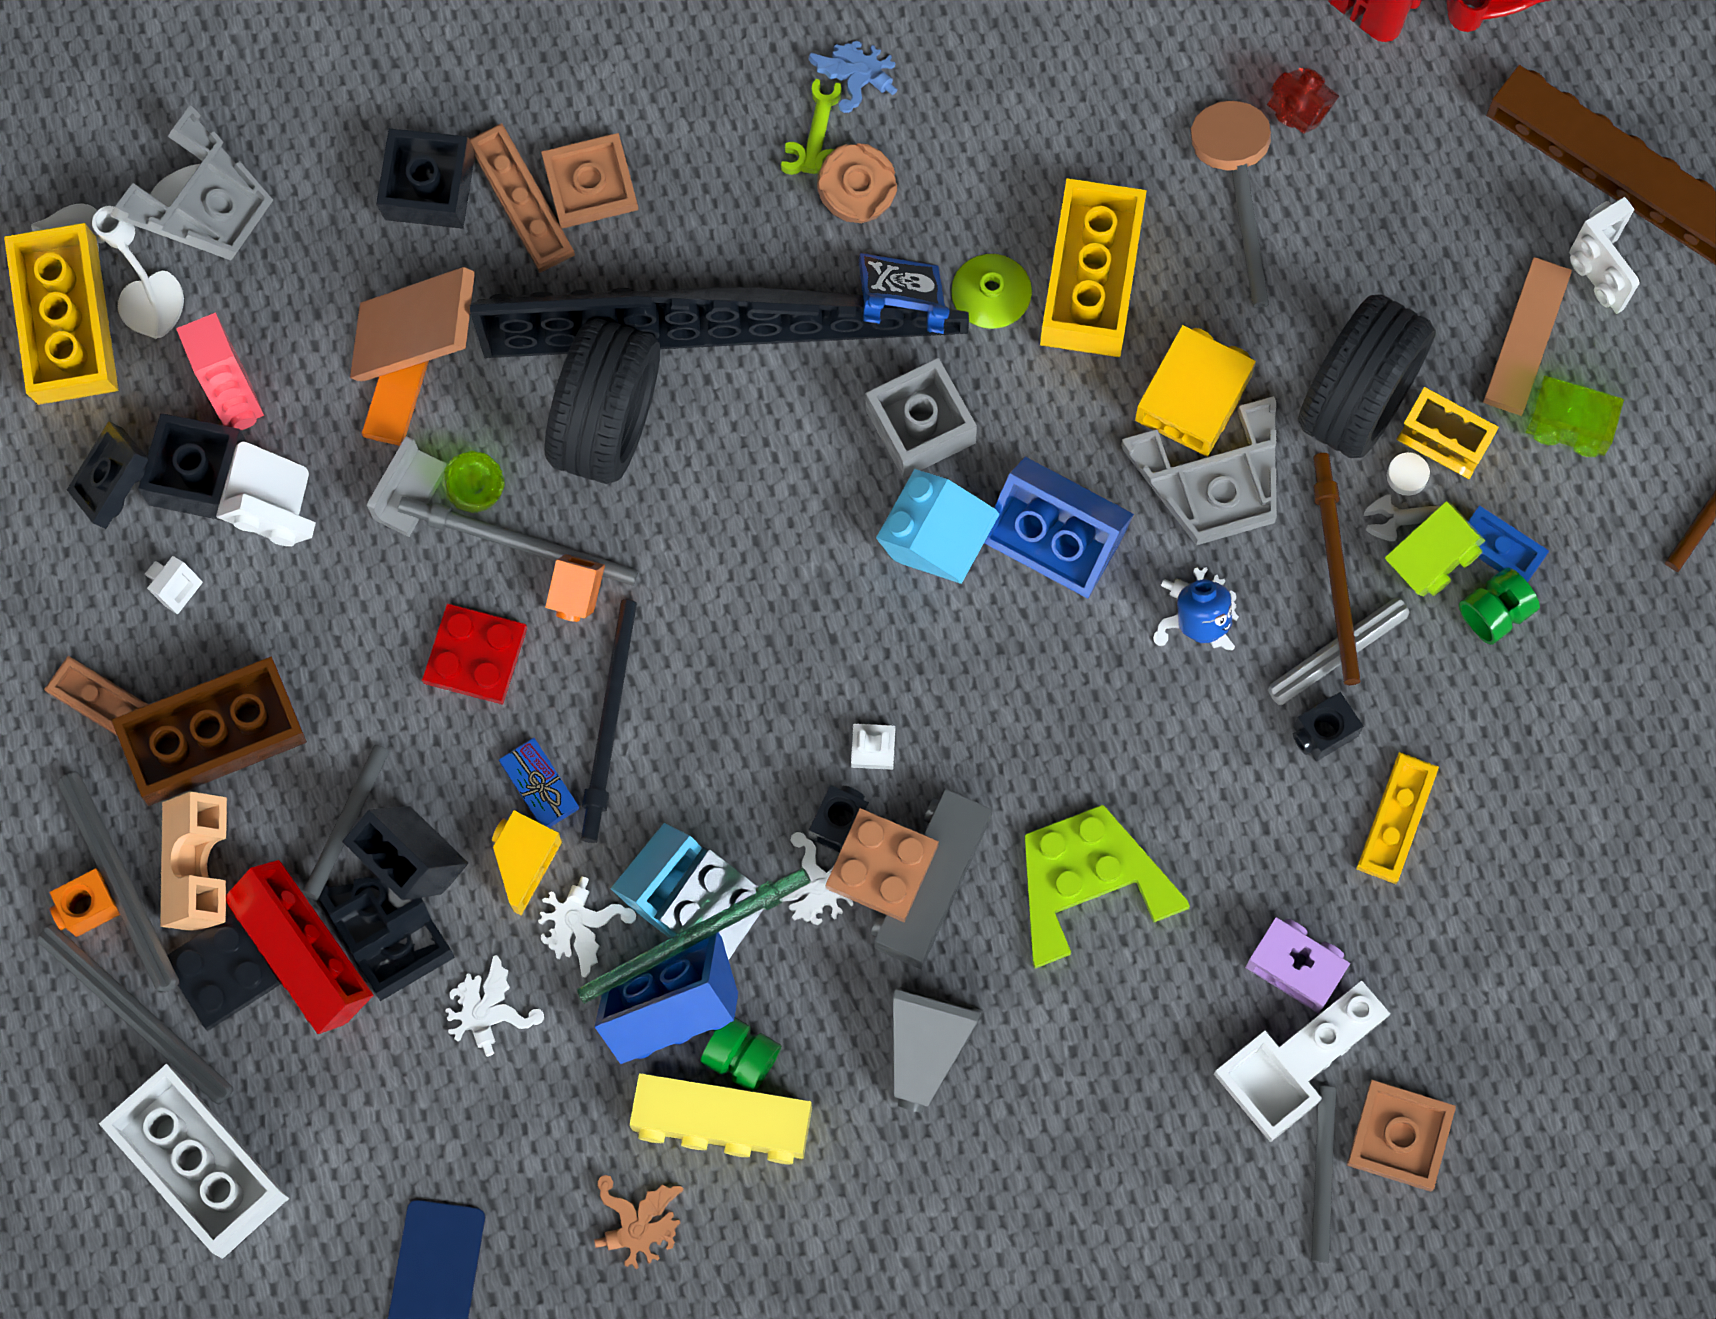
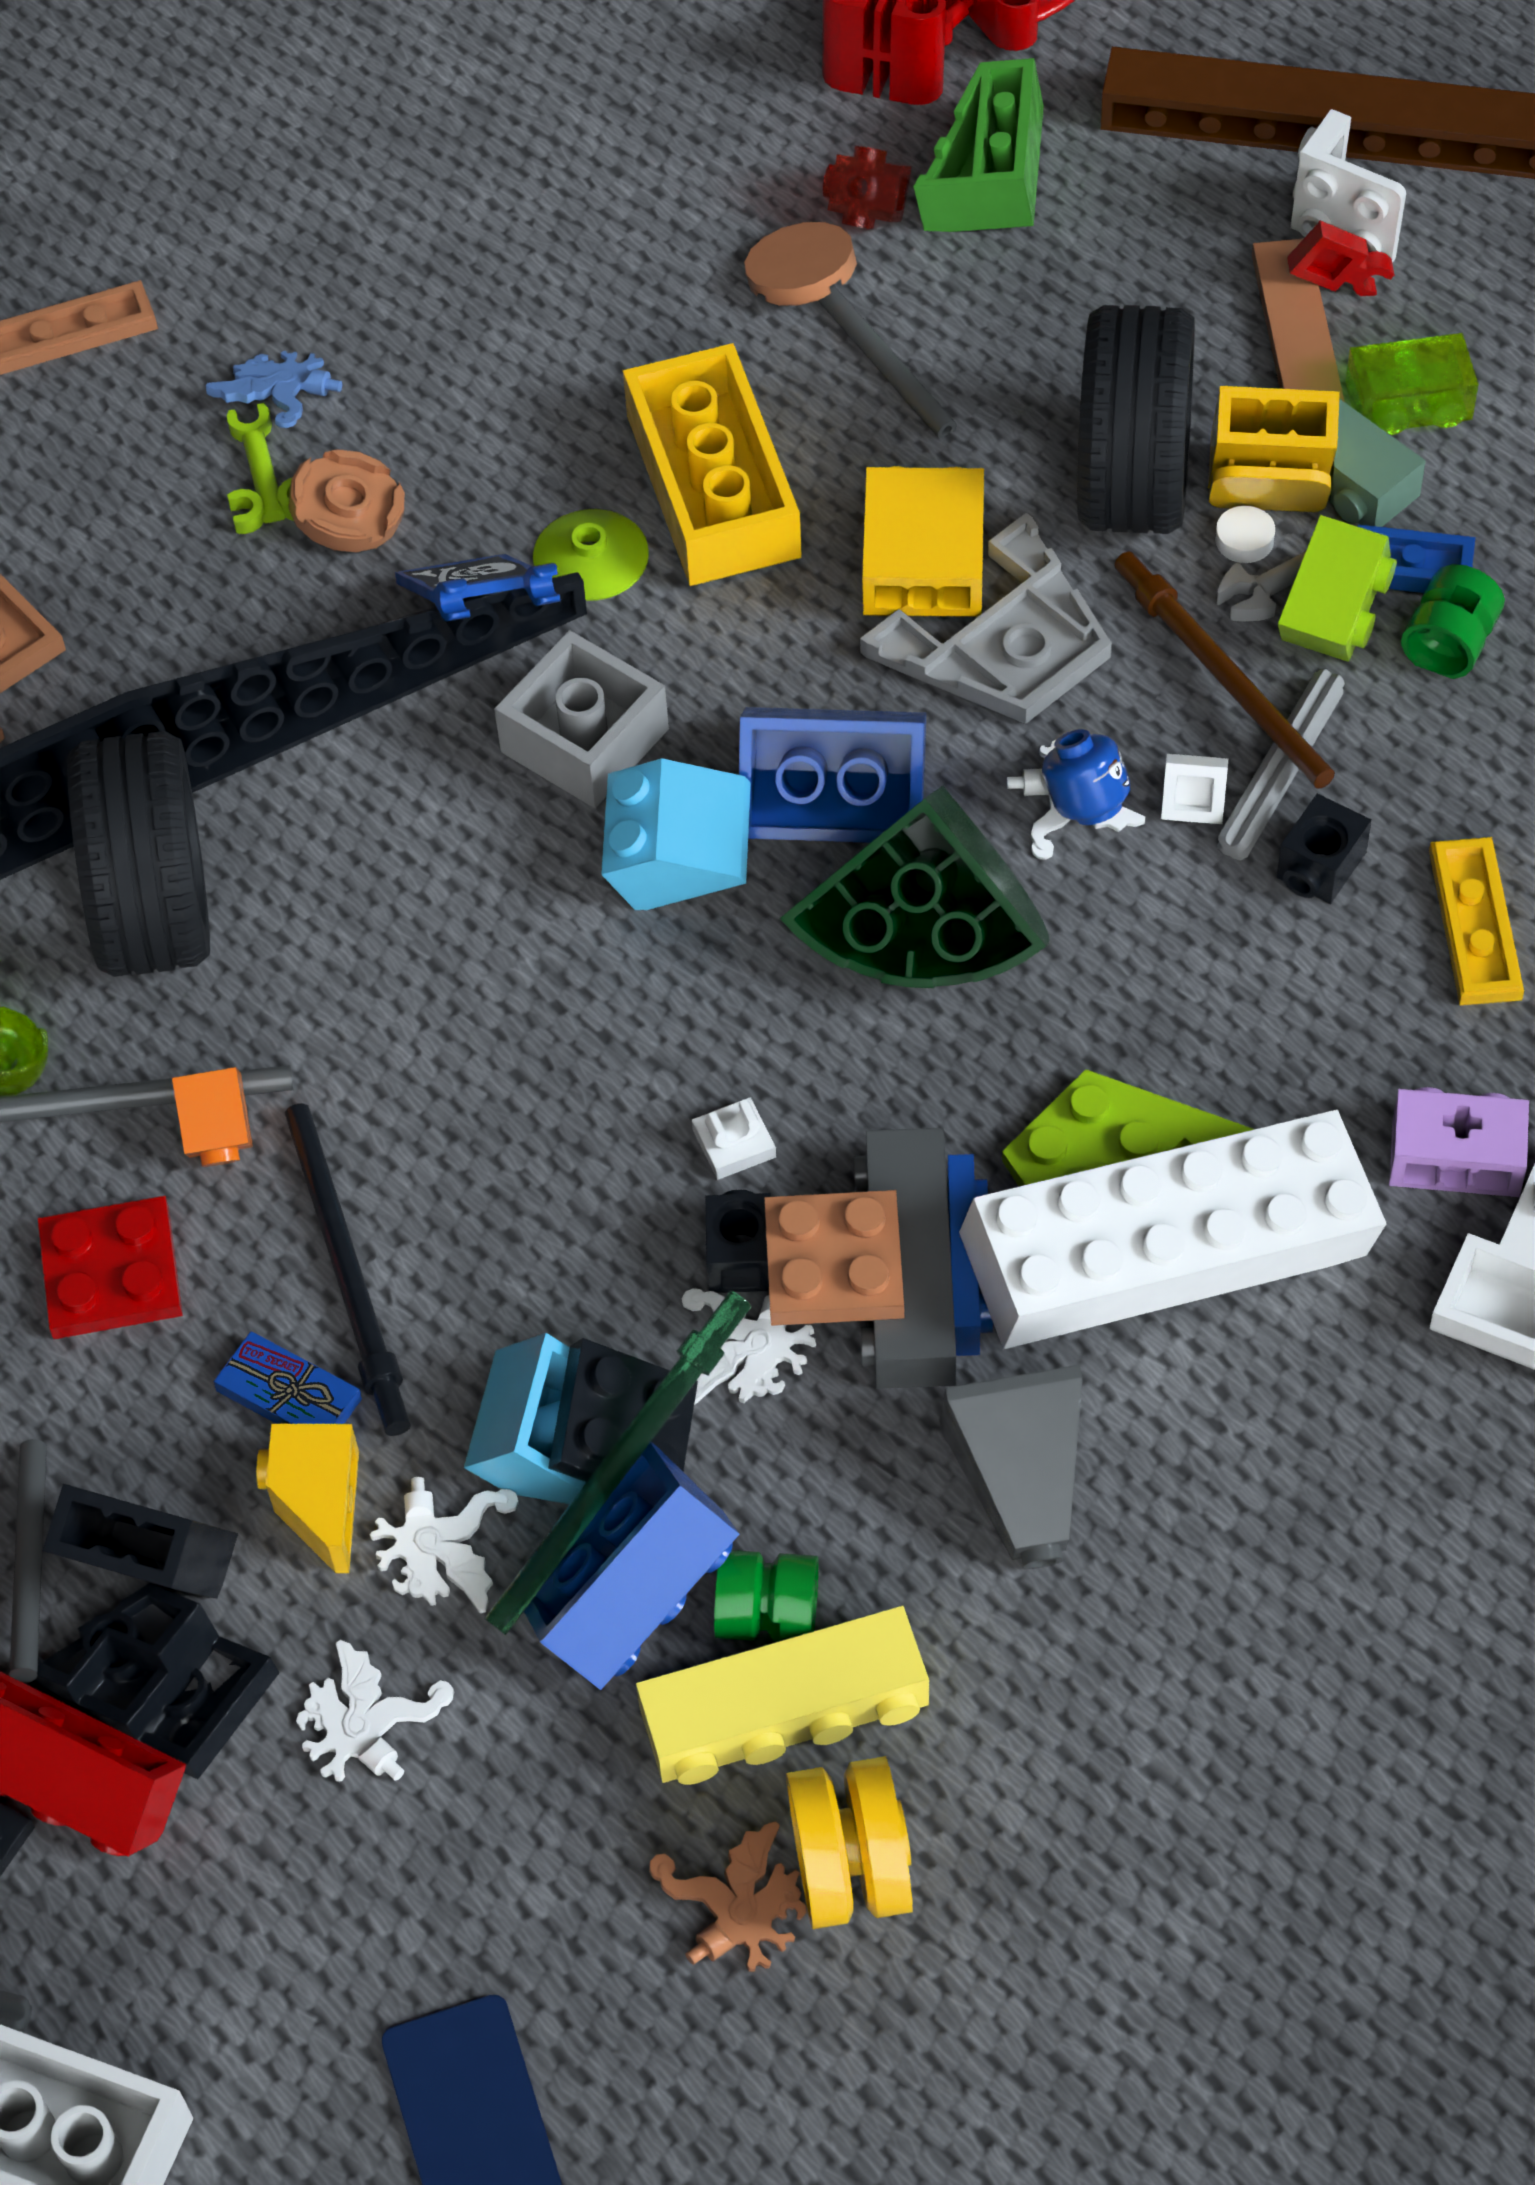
camera: 25 degrees left, 15 degrees down
(701, 1226) = (851, 1841): none -> yellow wheel
(967, 894) = (970, 1308): none -> blue plate
(1060, 651) = (923, 905): none -> dark green brick
(1090, 943) = (1170, 1228): none -> white brick
(1272, 645) = (1194, 788): none -> white tile
(1397, 110) = (991, 155): none -> bright green wedge
(1509, 468) = (1371, 471): none -> sand green slope
(1575, 298) = (1337, 256): none -> red plate

